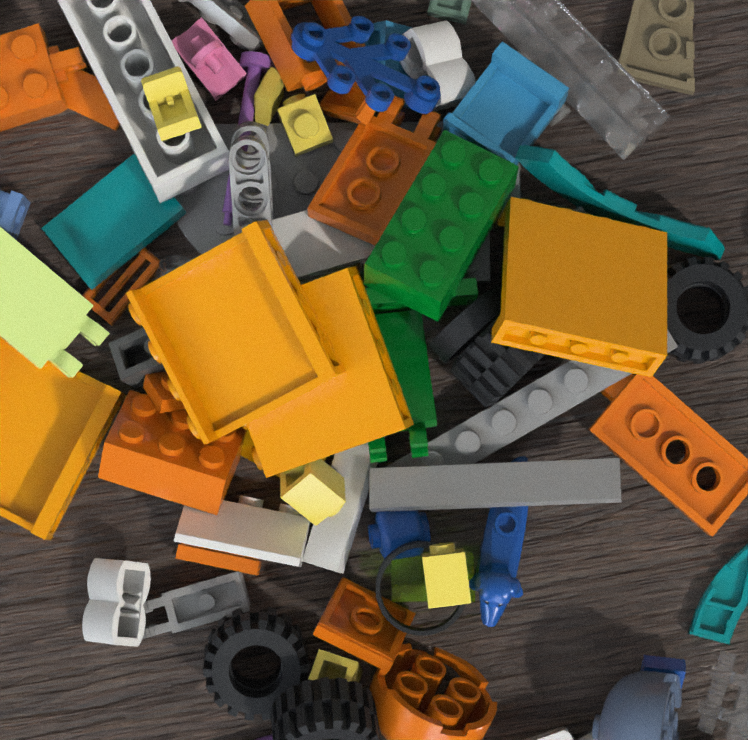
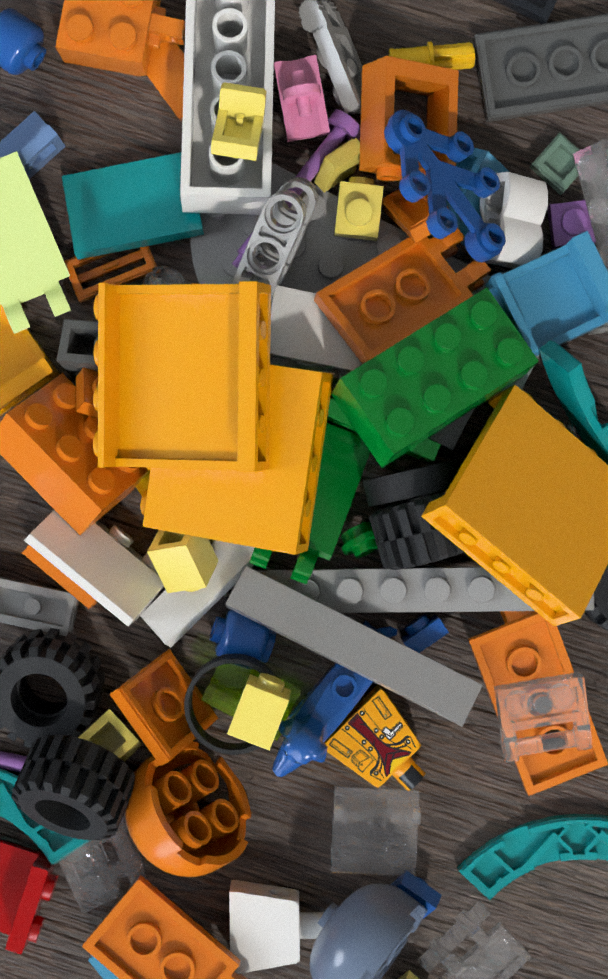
camera: 25 degrees right, 5 degrees up
(453, 398) = (359, 541): none -> green plate
(483, 41) = (568, 221): none -> medium lavender plate
(549, 444) = (423, 632): none -> blue plate
(560, 558) = (377, 742): none -> light orange torso
(599, 638) = (375, 831): none -> clear hinge
(677, 451) = (543, 704): none -> clear plate

